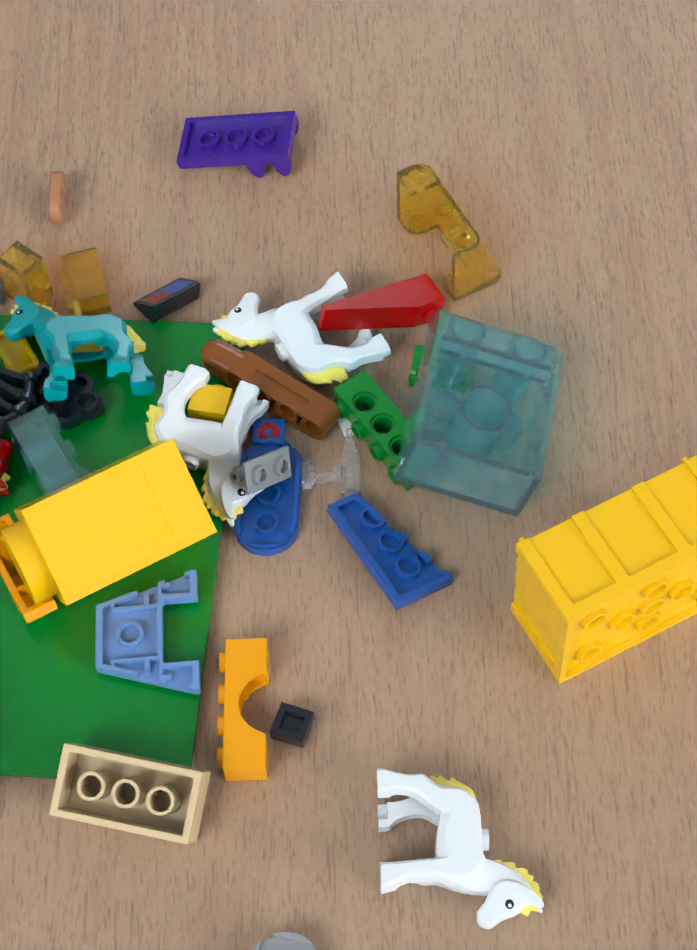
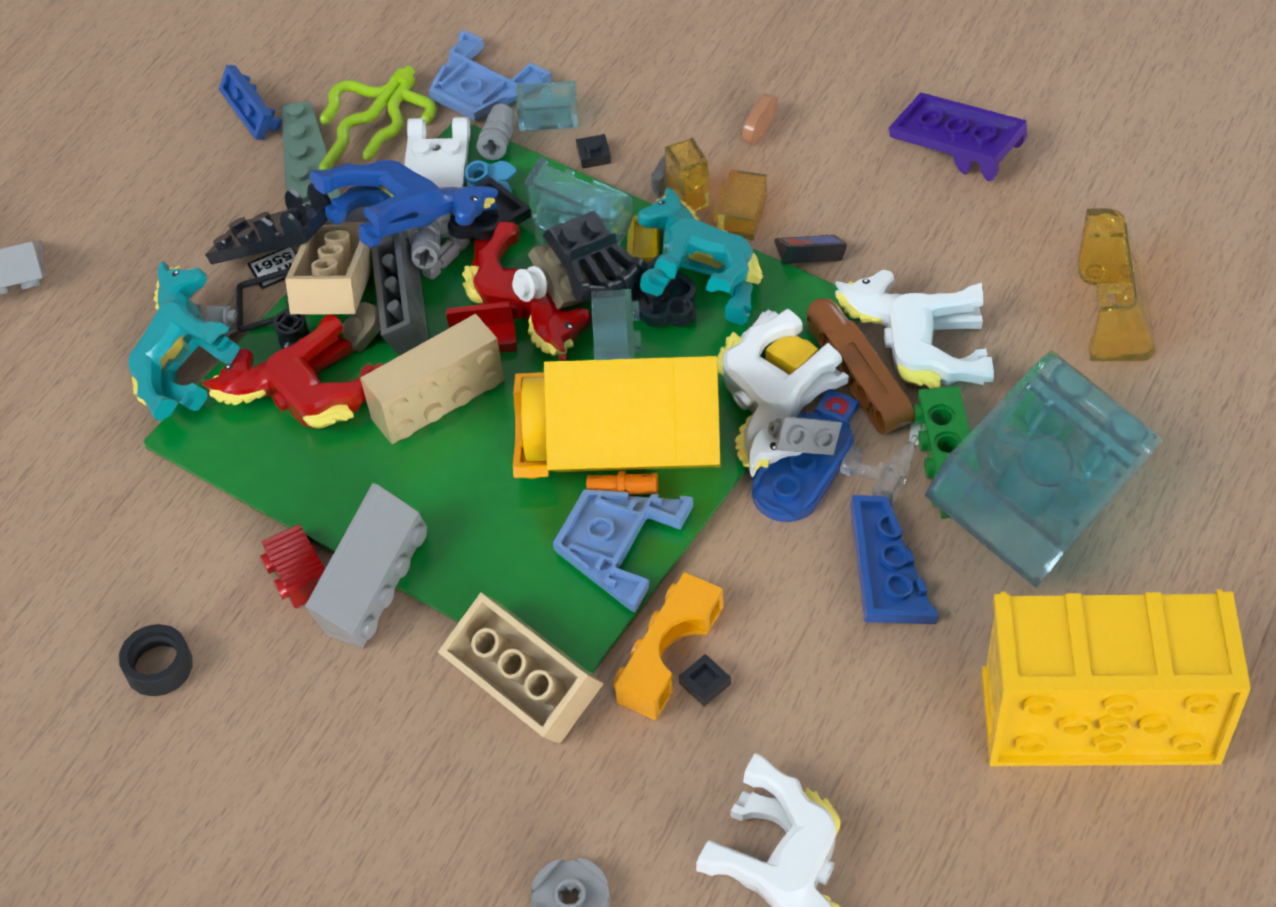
camera: 30 degrees right, 5 degrees down
(128, 584) = (622, 482): none -> orange pin
(390, 306) = (1010, 335): red slope -> none

